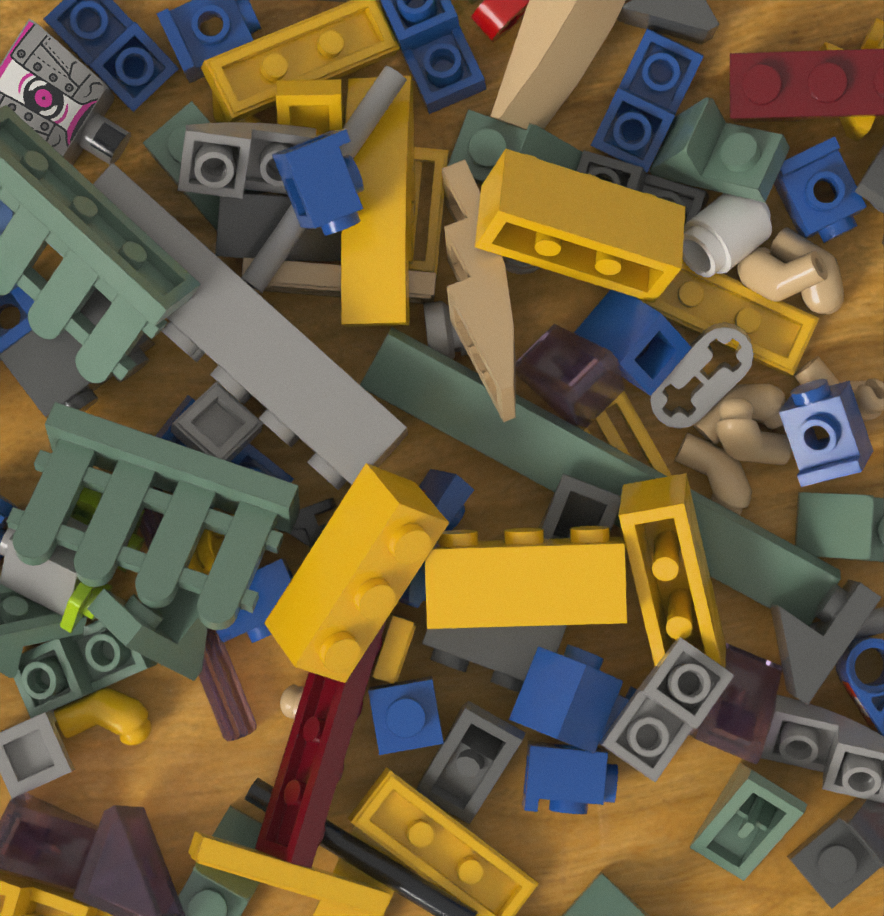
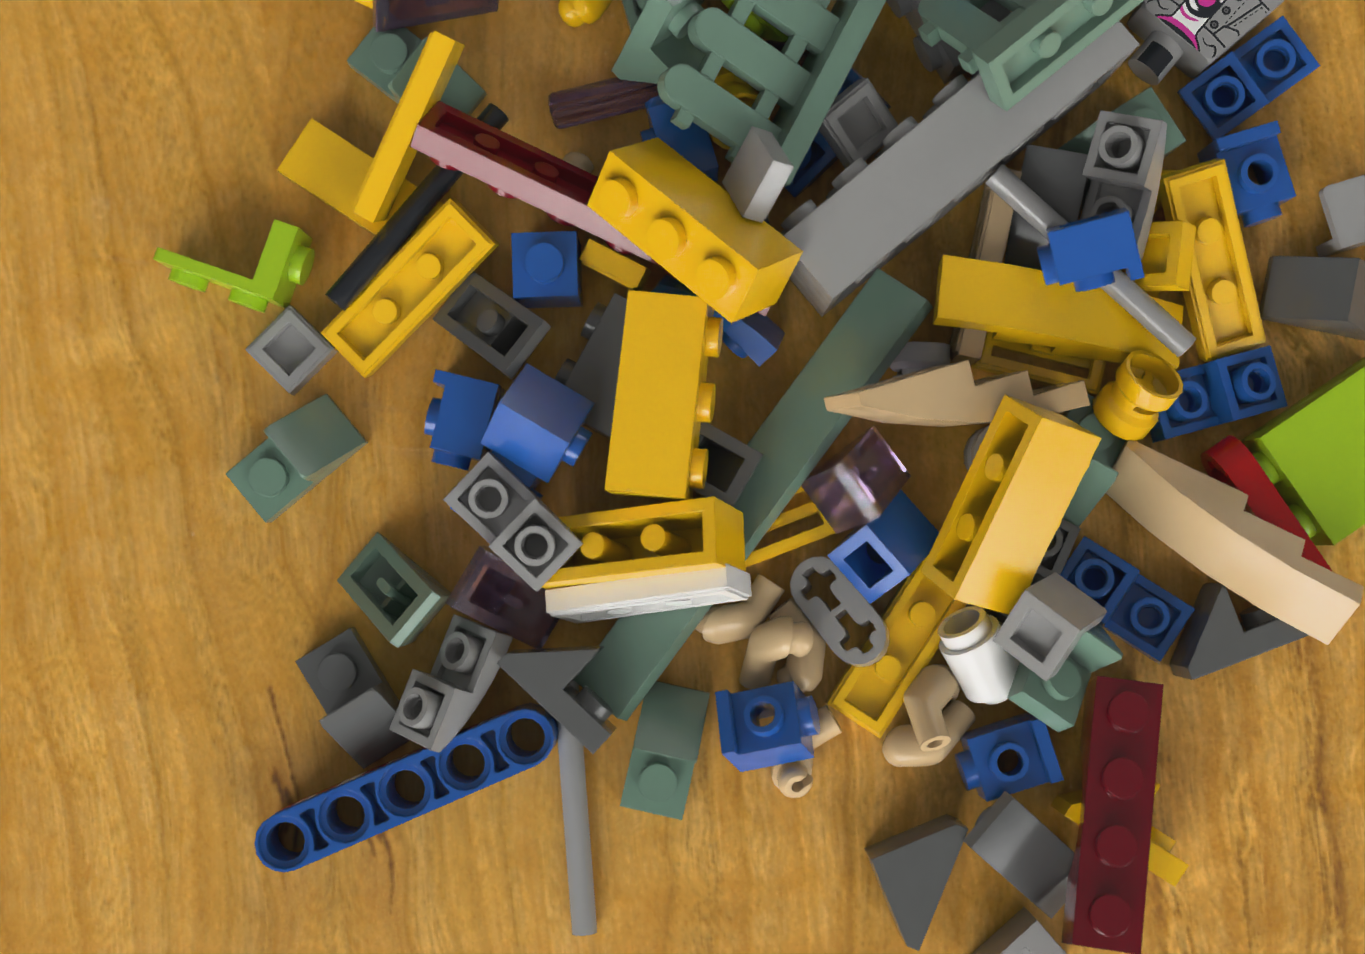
camera: 105 degrees right, 0 degrees up
(295, 518) = (757, 174): none -> light grey tile
(457, 117) = (1141, 390): none -> yellow wheel
(689, 172) = (1048, 624): none -> light grey panel
(717, 567) = (648, 594): none -> white tile

